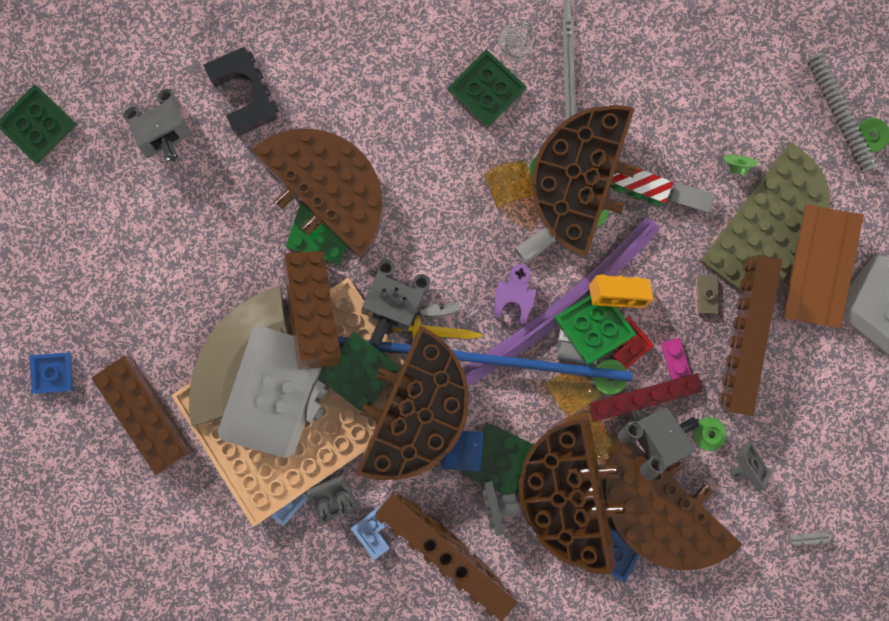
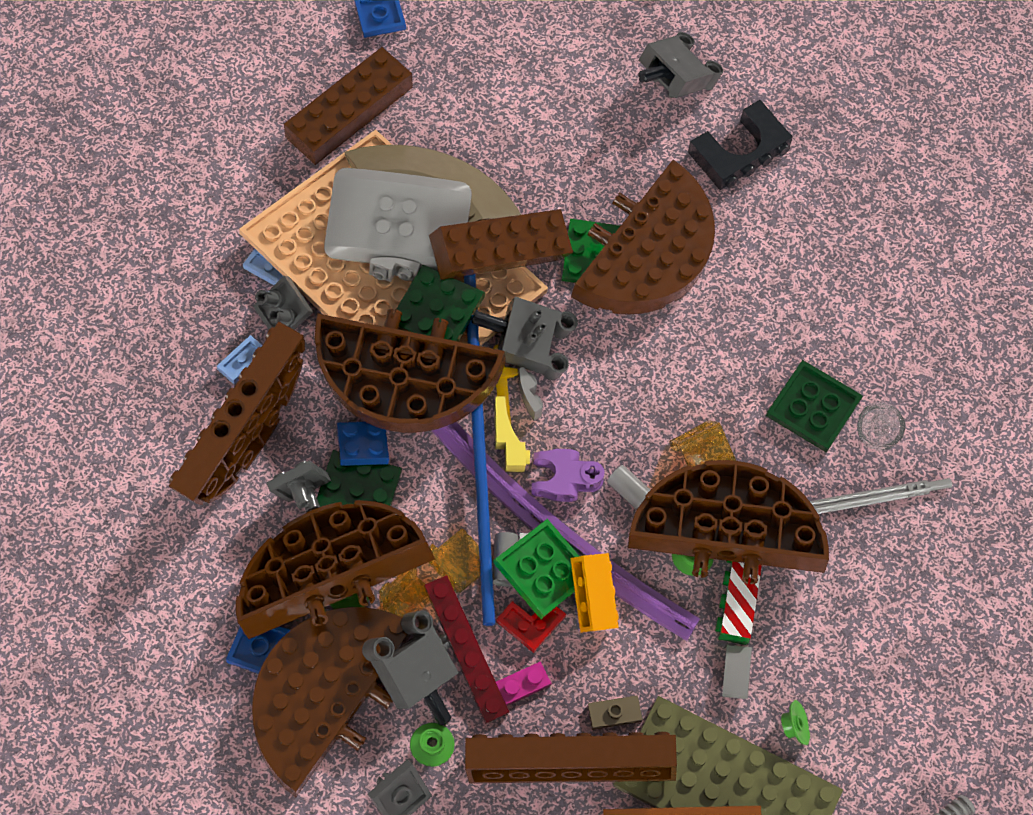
camera: 75 degrees right, 20 degrees down
(492, 330) = (515, 451): none -> light yellow slope
(612, 386) = (472, 599): bright green piece -> none

